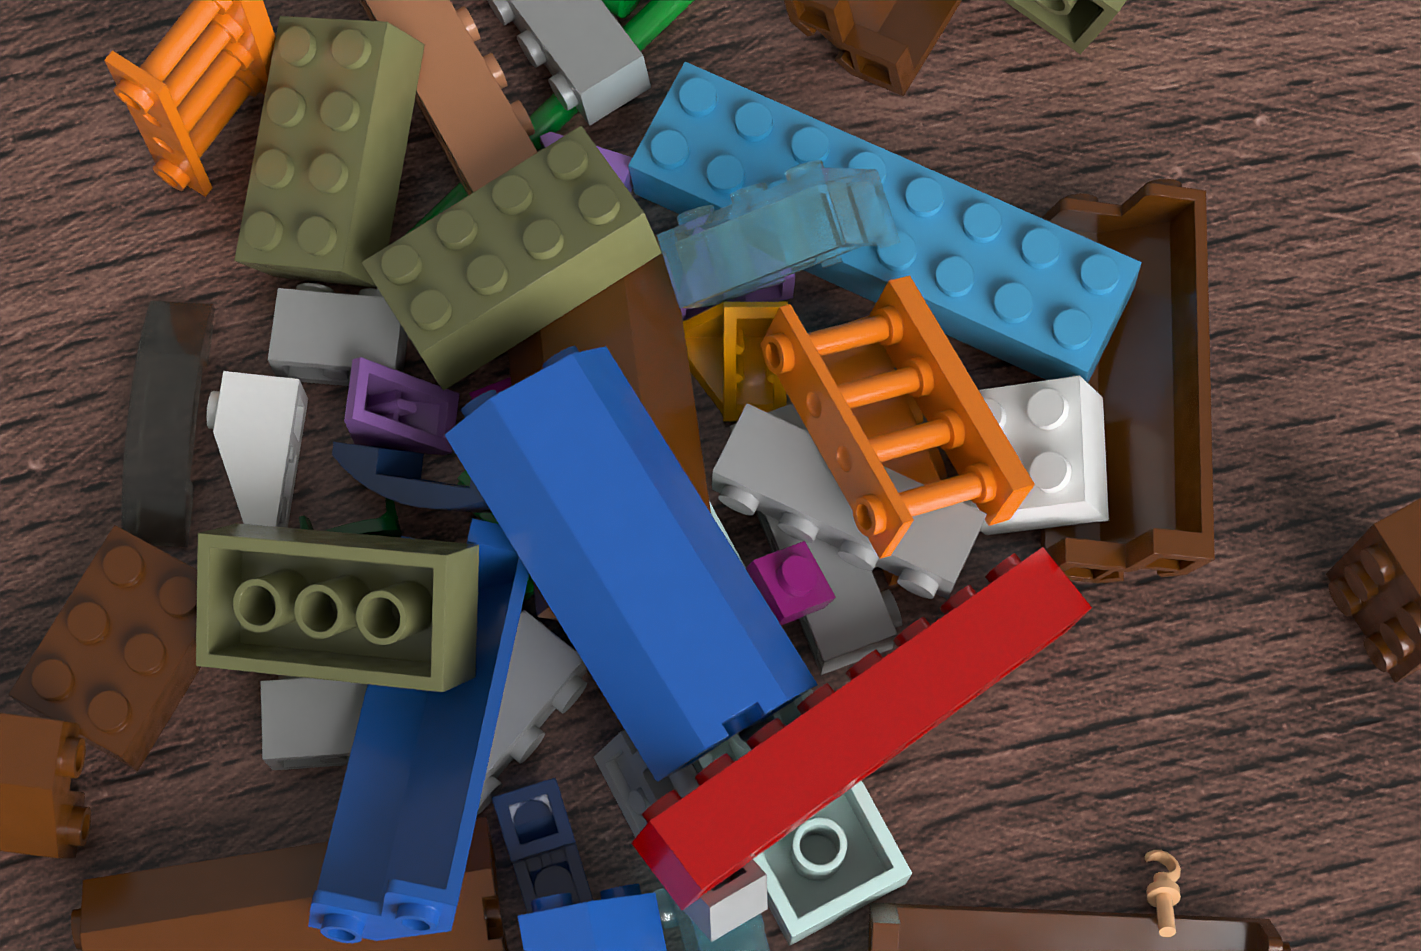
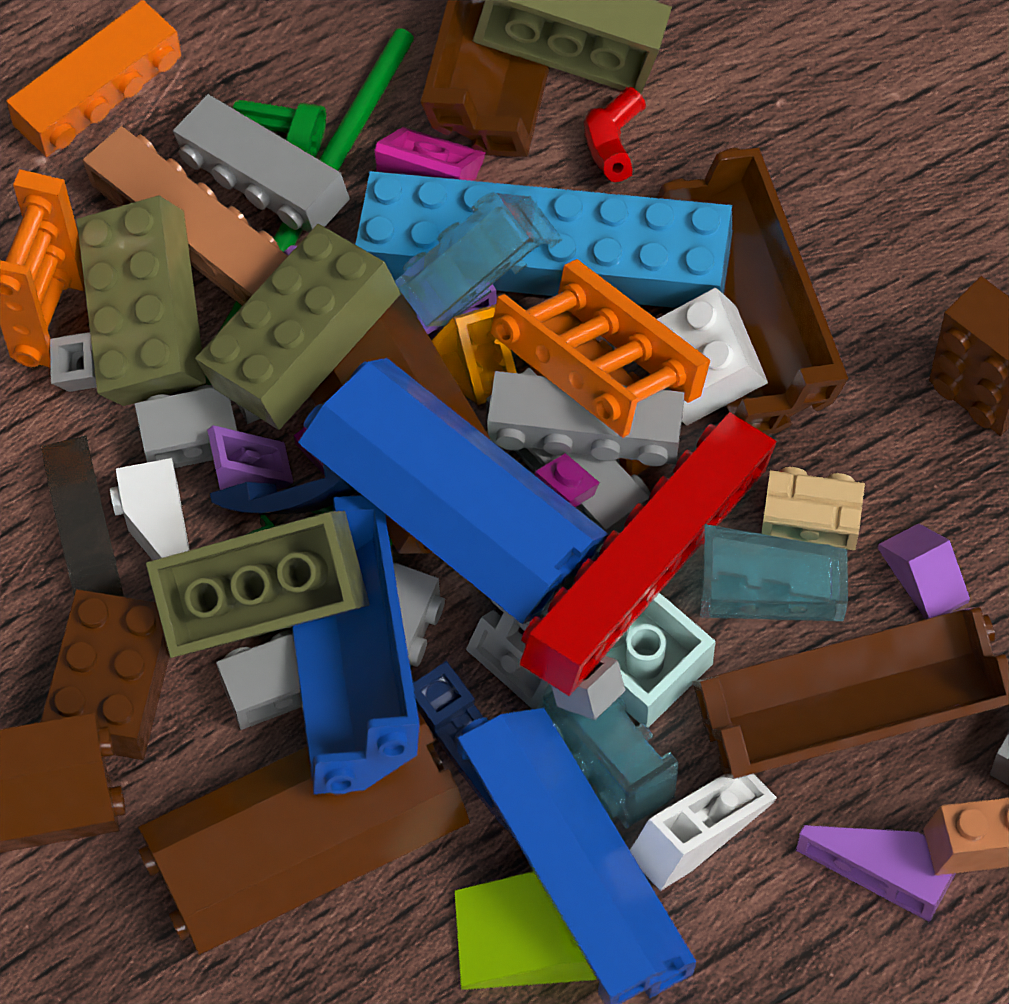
camera: 15 degrees left, 10 degrees down
(219, 202) = (72, 362): none -> light grey plate
(771, 60) = (426, 155): none -> dark pink slope
(1012, 97) = (603, 133): none -> red arm
(1023, 796) = (771, 577): none -> clear light blue wedge
(1110, 712) = (813, 508): none -> tan brick
(1164, 891) = (890, 611): light nougat hand -> none
(1230, 844) = (926, 570): none -> medium lavender slope

